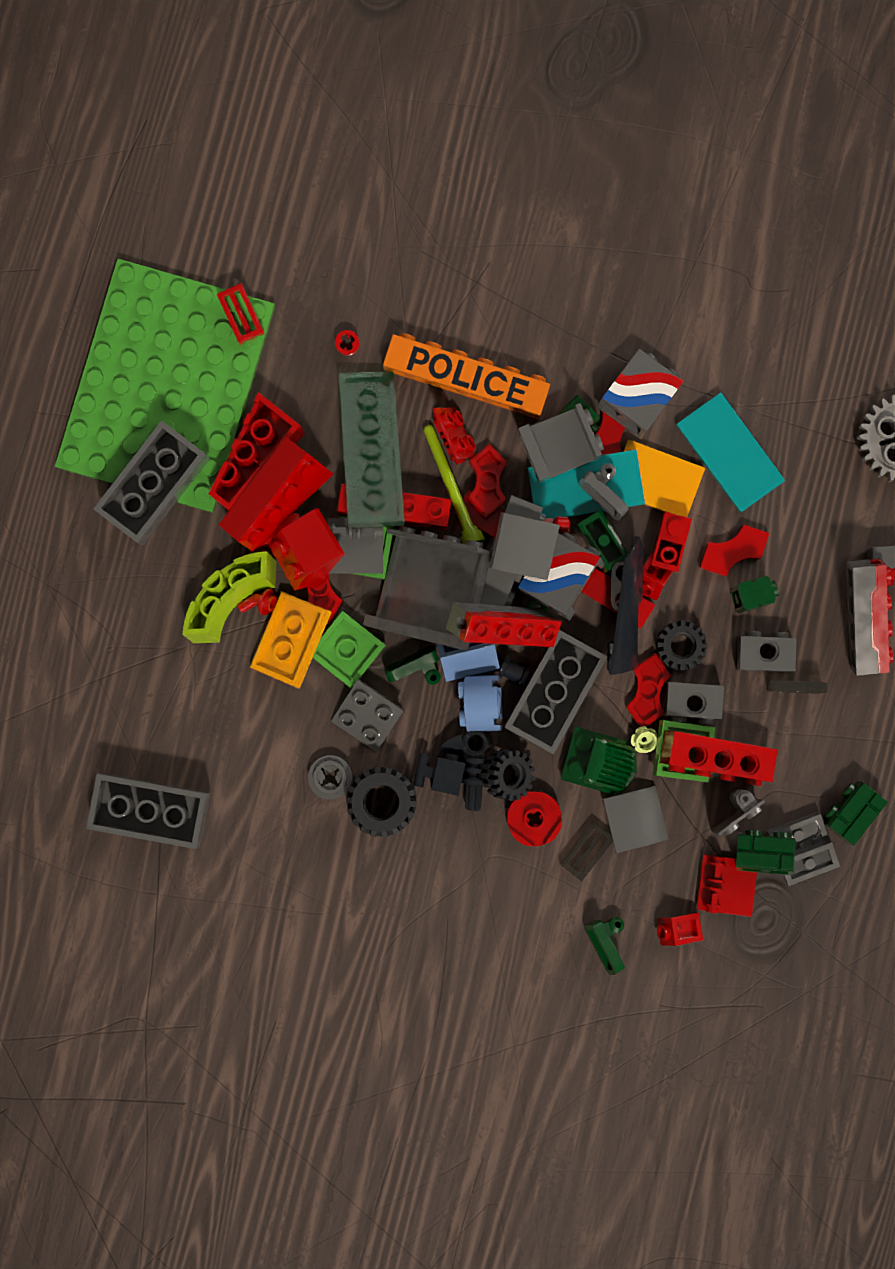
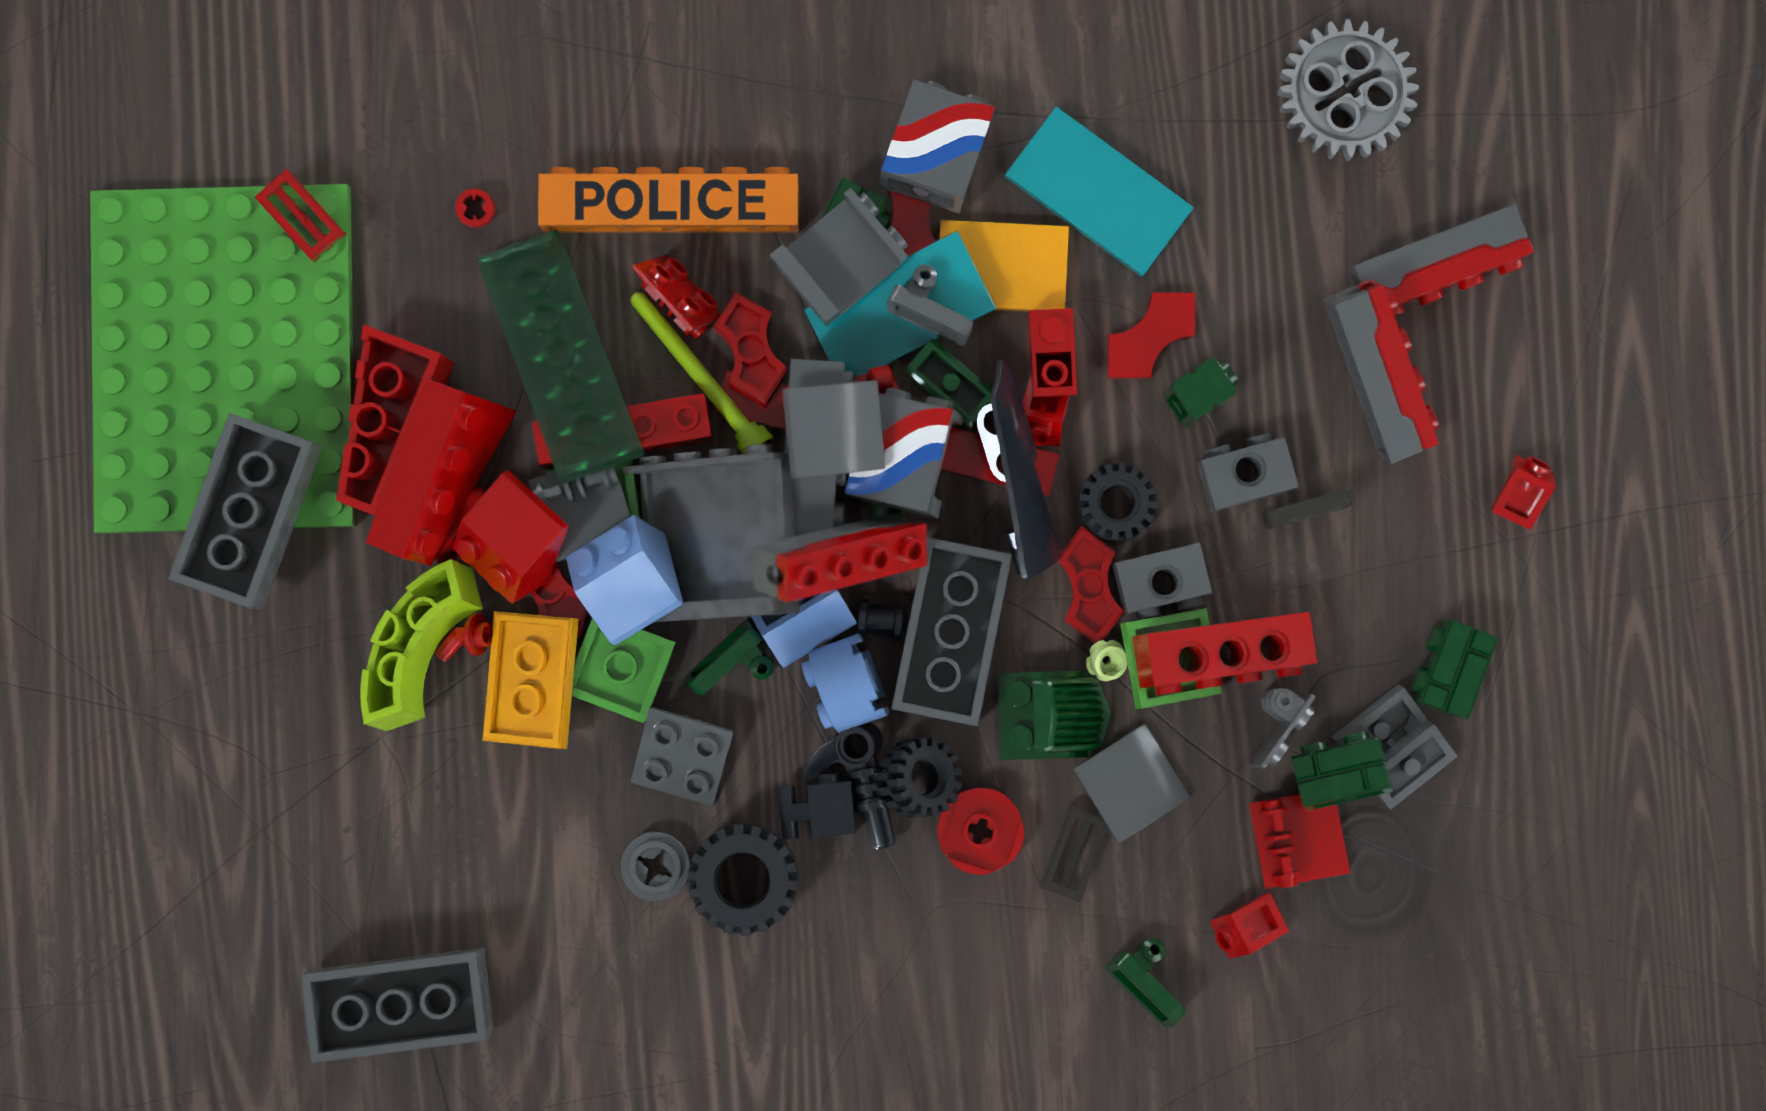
camera: 20 degrees left, 0 degrees up
(368, 597) = (625, 578): none -> medium blue slope

